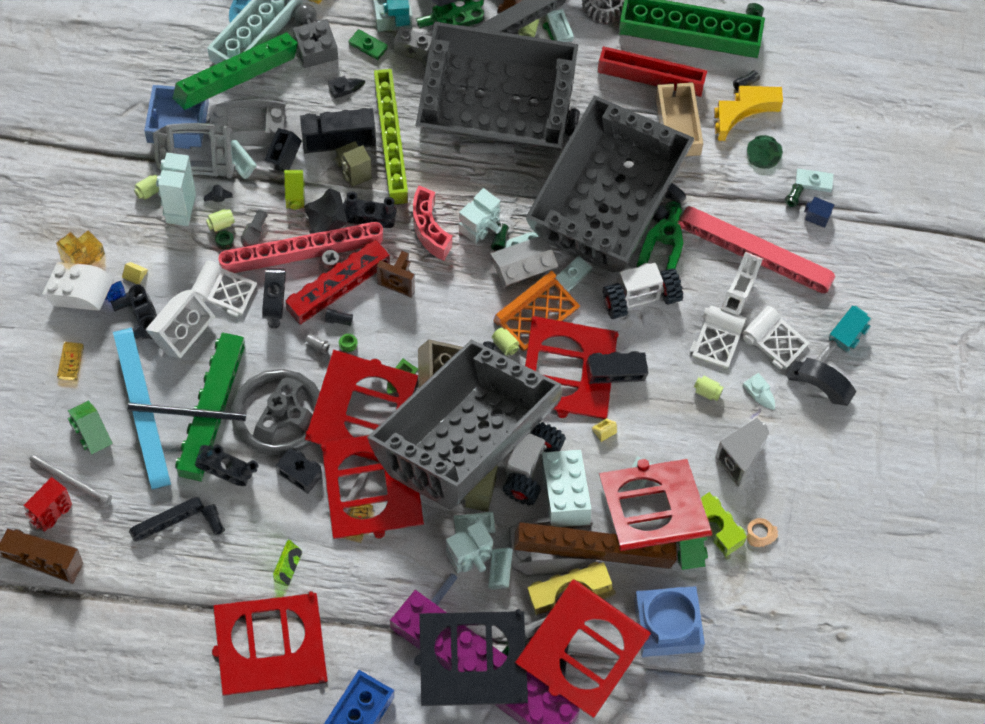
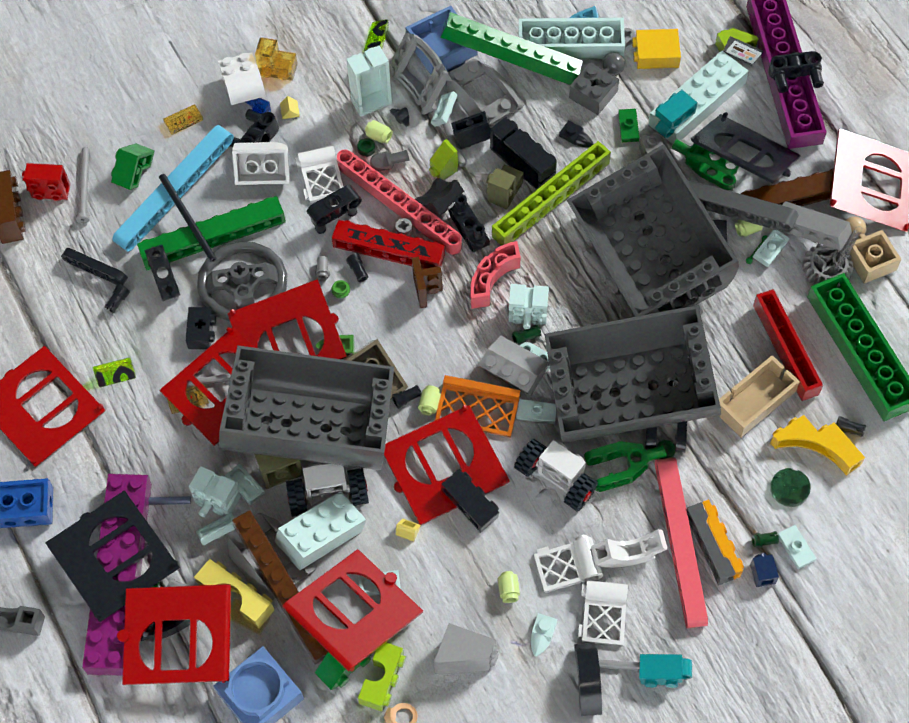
camera: 60 degrees right, 0 degrees up
(120, 162) = (377, 34): none -> clear neon green slope
(775, 228) = (714, 542): none -> dark grey piece

